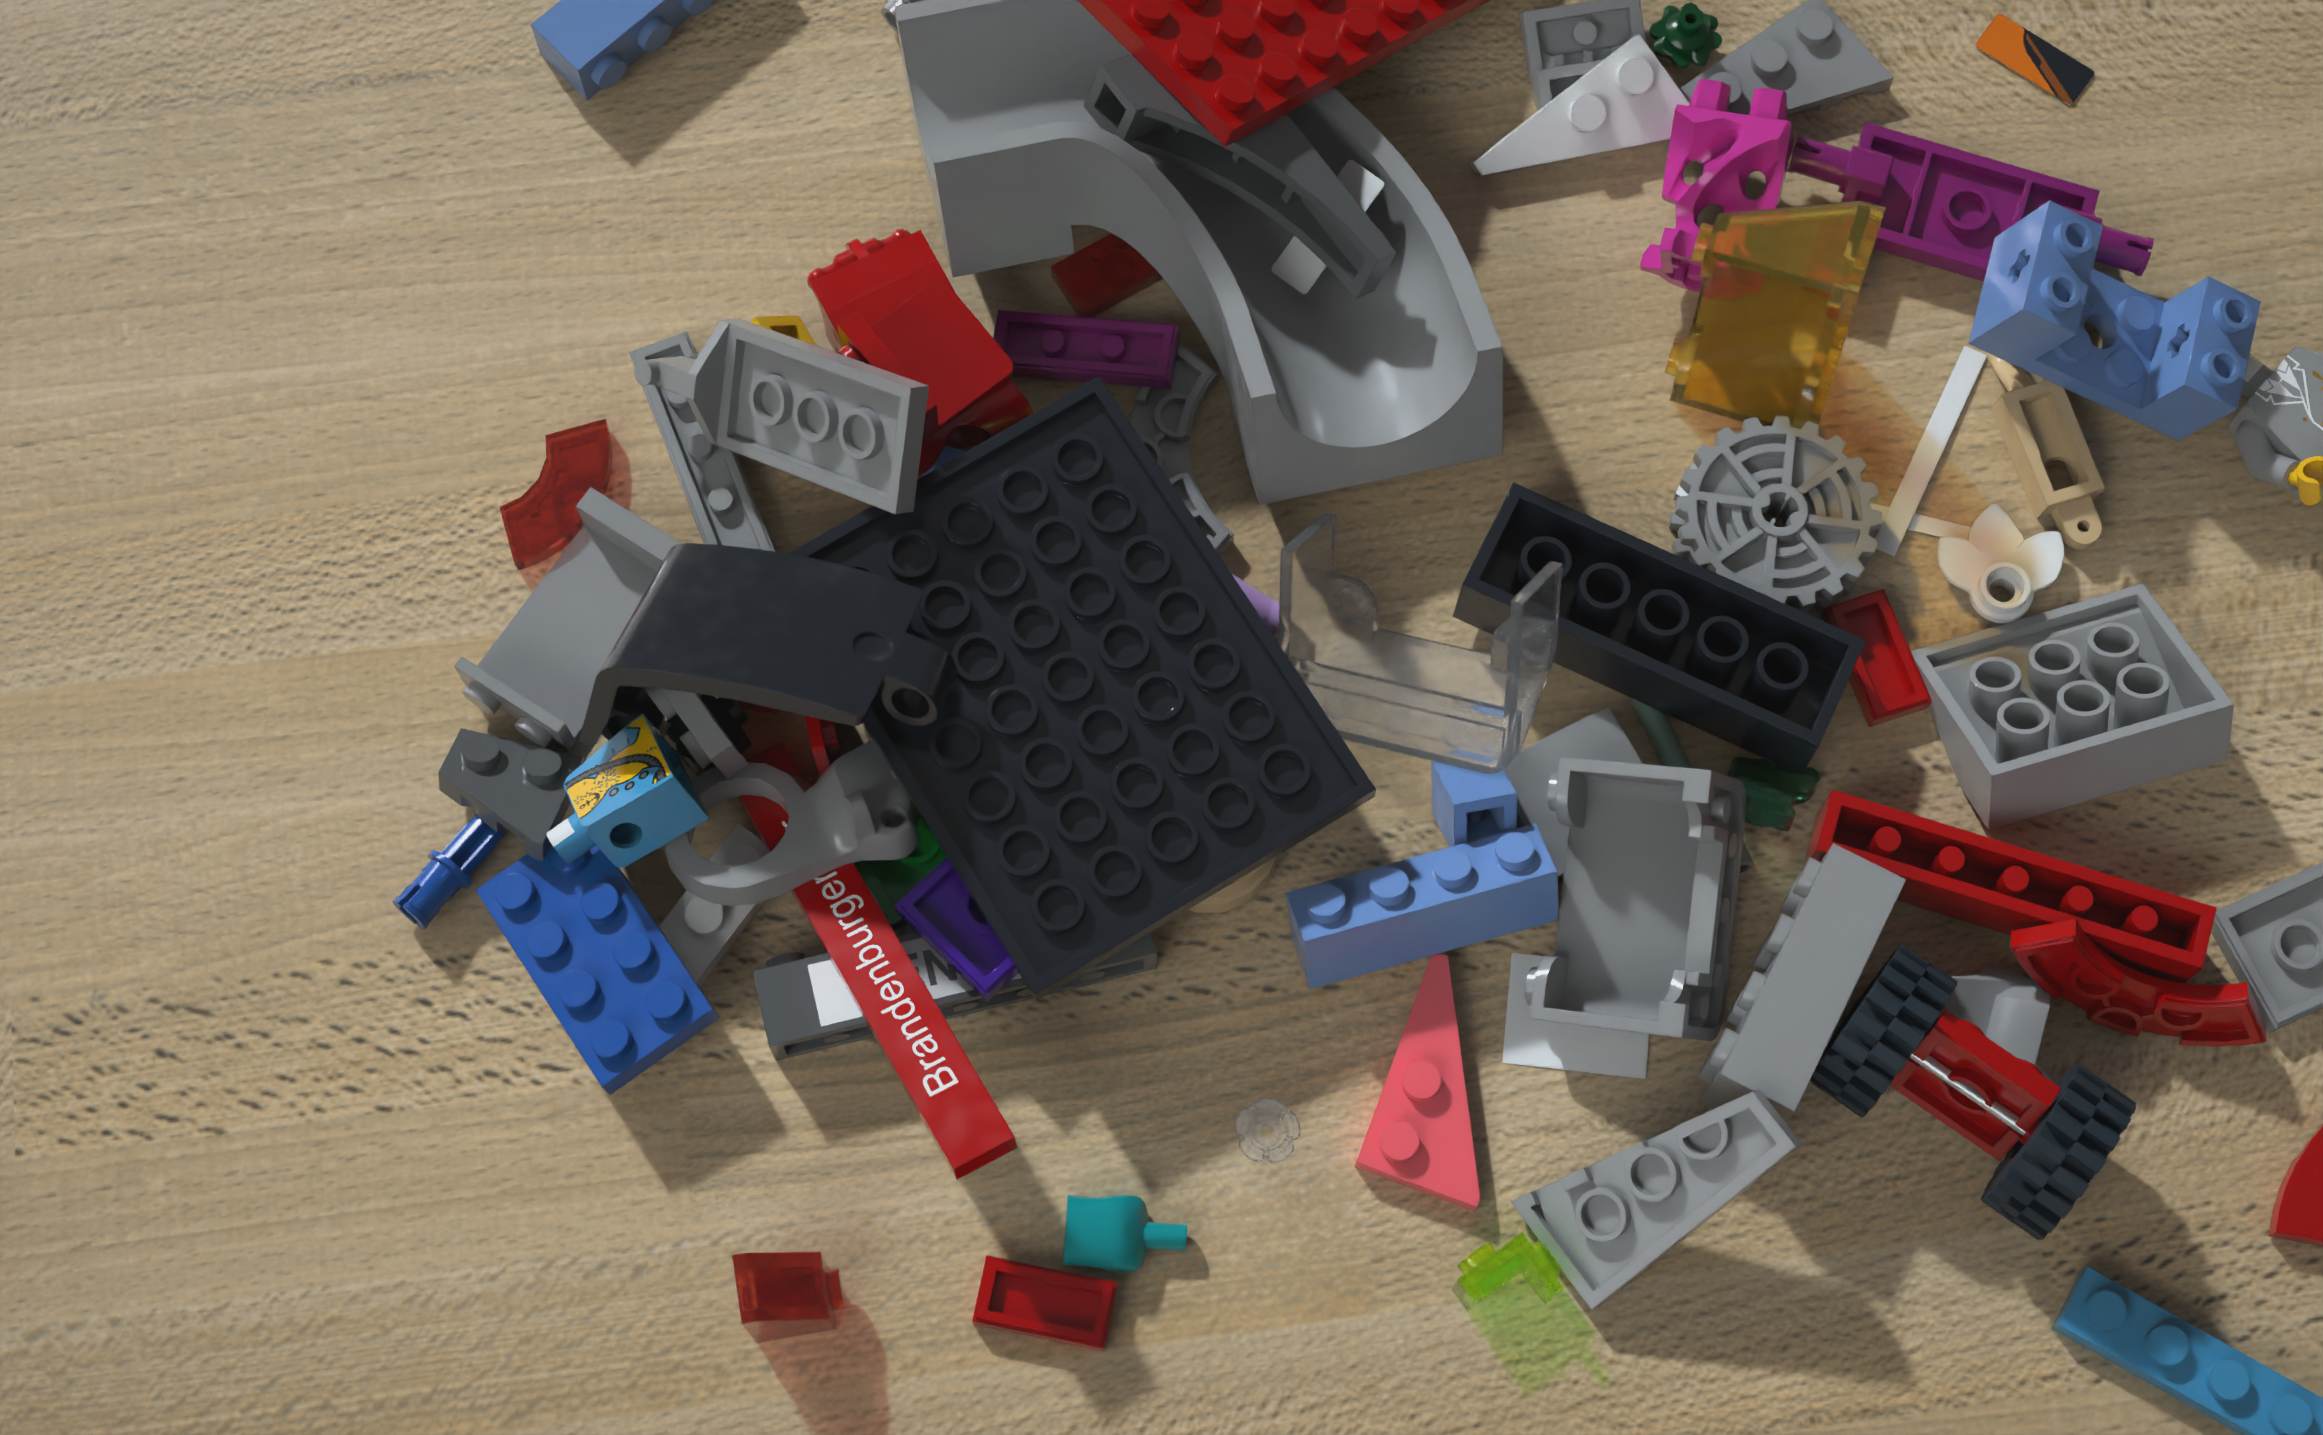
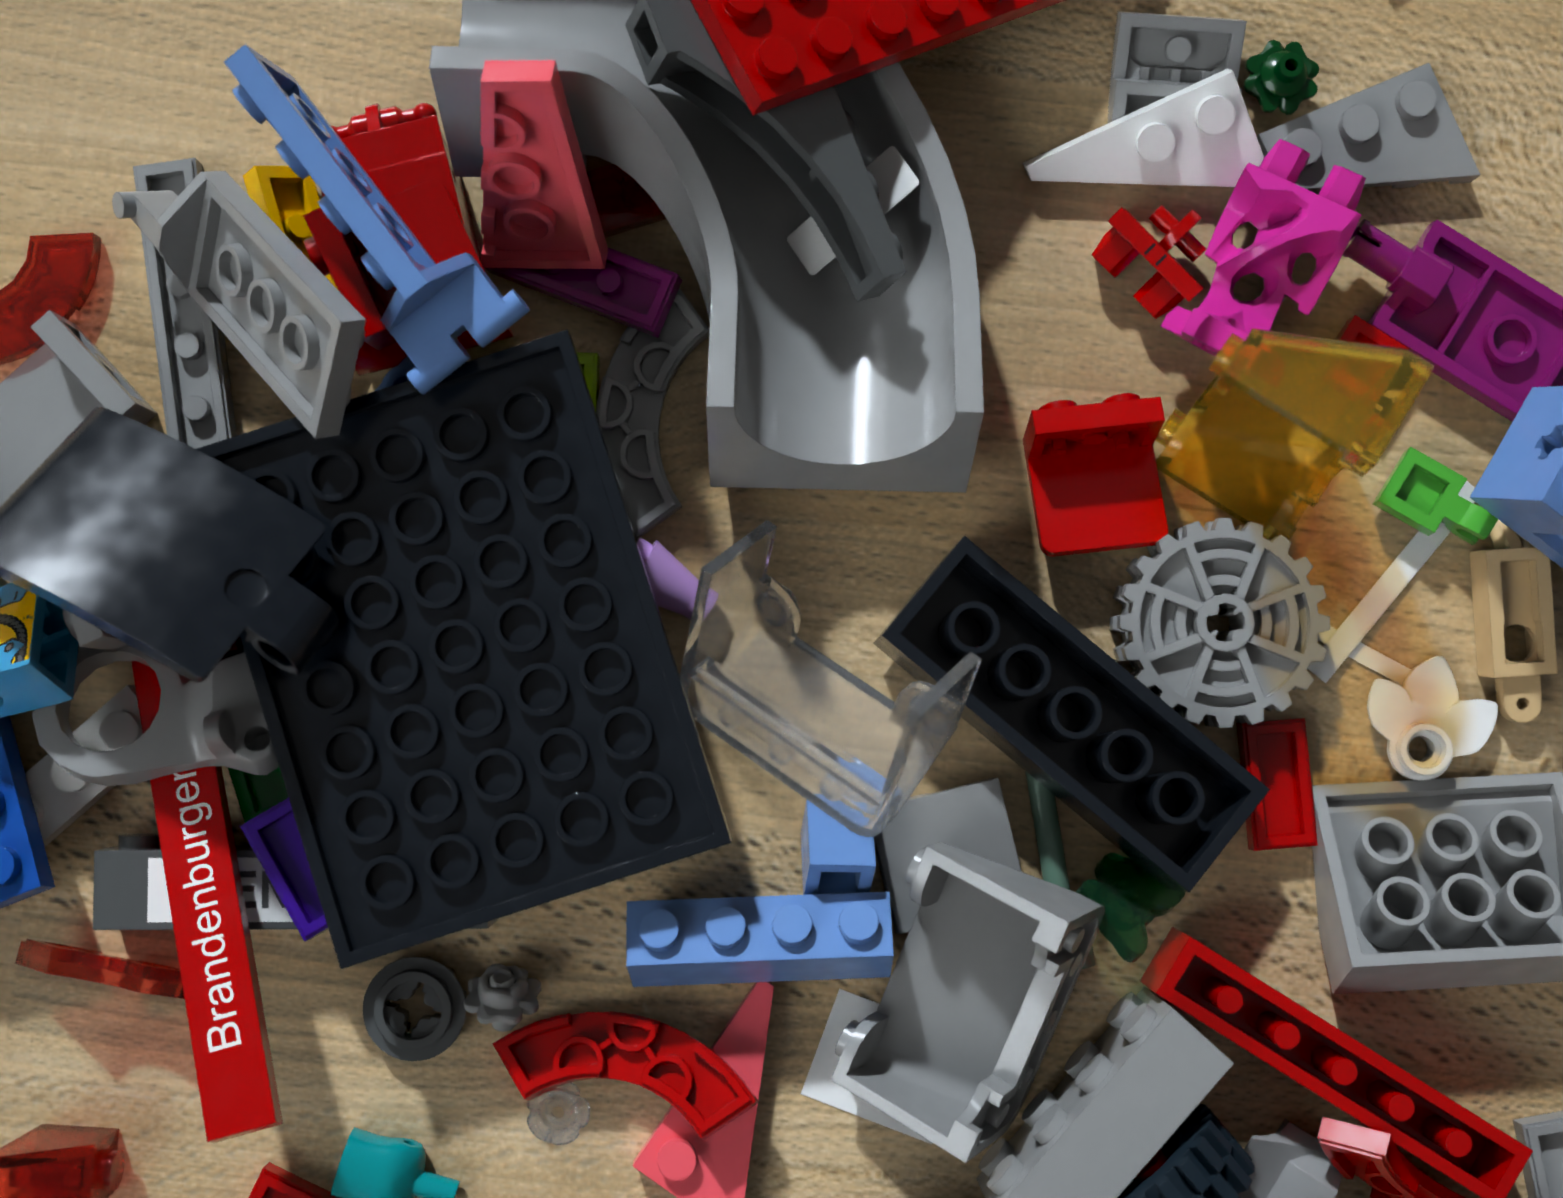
camera: 10 degrees right, 15 degrees up
(787, 1094) = (97, 967): none -> clear red tile
(970, 367) = (431, 299): none -> medium blue hinge
(1035, 256) = (534, 173): none -> coral wing
(1076, 1043) = (389, 1022): none -> dark grey gear
(1184, 1026) = (502, 996): none -> light grey plant
(1323, 1050) = (631, 1051): none -> red tile
(1590, 202) = (1130, 239): none -> red hips
(1618, 410) = (1095, 474): none -> red bracket
(1932, 362) = (1427, 493): none -> bright green plate

